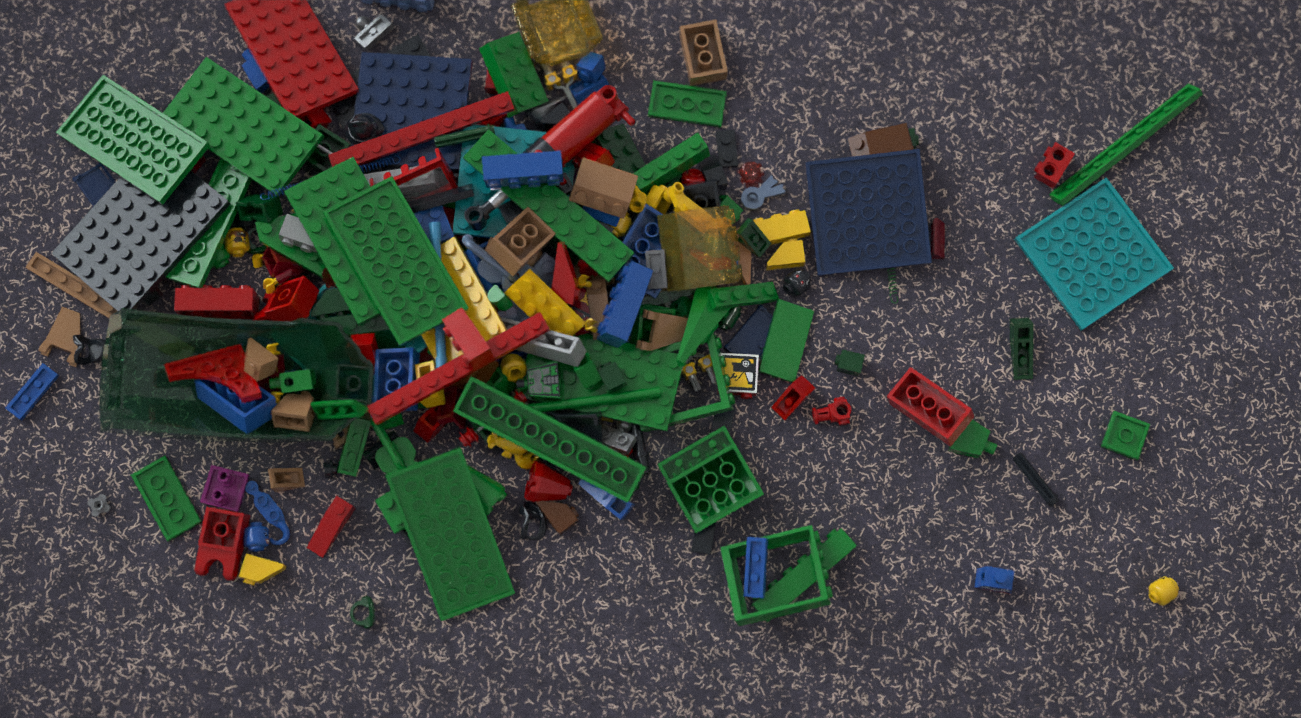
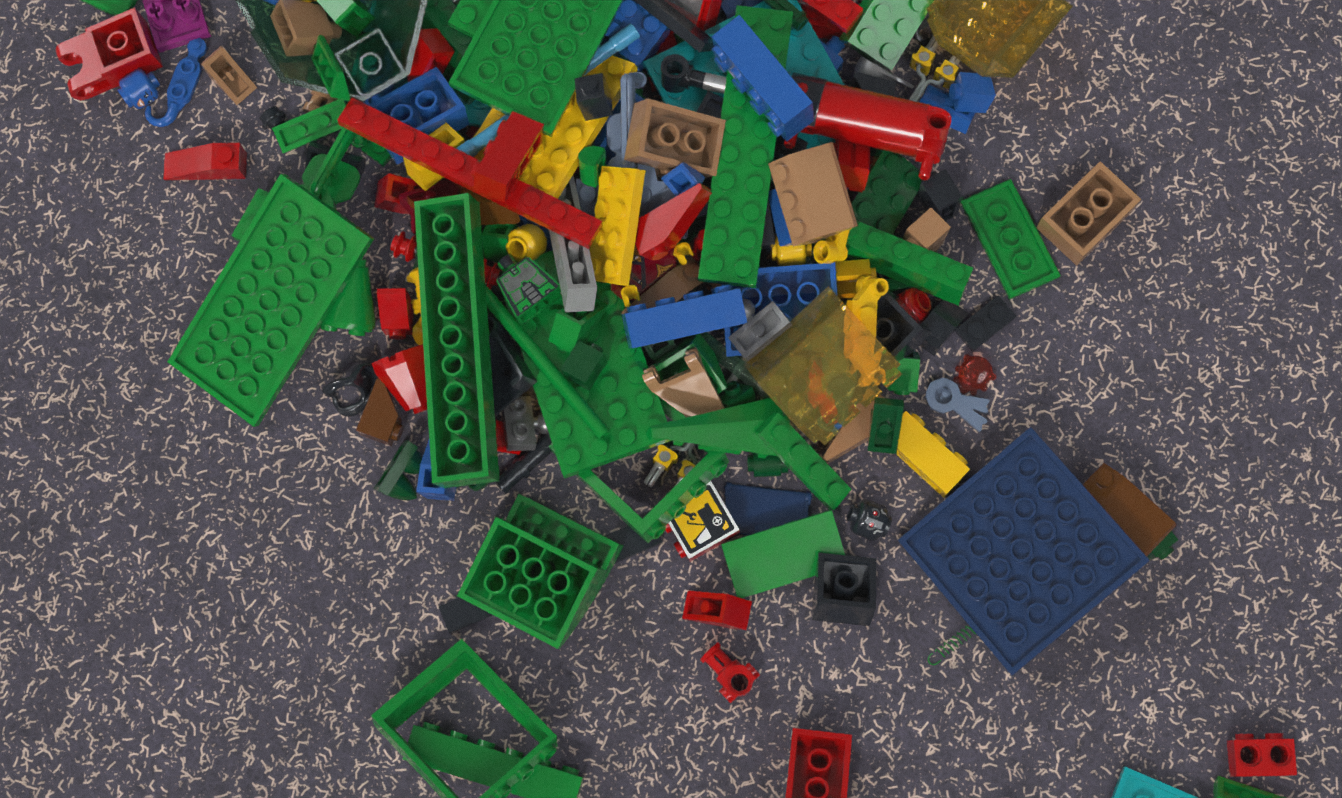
camera: 65 degrees right, 0 degrees up
(258, 569) = (103, 116): yellow slope -> none
(367, 602) = (138, 264): dark green piece -> none
(463, 270) = (593, 96): none -> black brick
(503, 468) = (395, 312): none -> red slope
(547, 252) = (682, 178): none -> blue slope
(599, 532) = (392, 481): none -> dark green tile
(643, 124) = (941, 195): none -> black slope
(657, 143) = (928, 231): none -> medium nougat brick
(755, 567) = (459, 699): blue plate -> none
(788, 255) = (897, 485): yellow slope -> none
(827, 320) = (844, 589): none -> black slope
(849, 362) = (809, 652): dark green brick -> none
(937, 239) = (1052, 665): dark red slope -> none

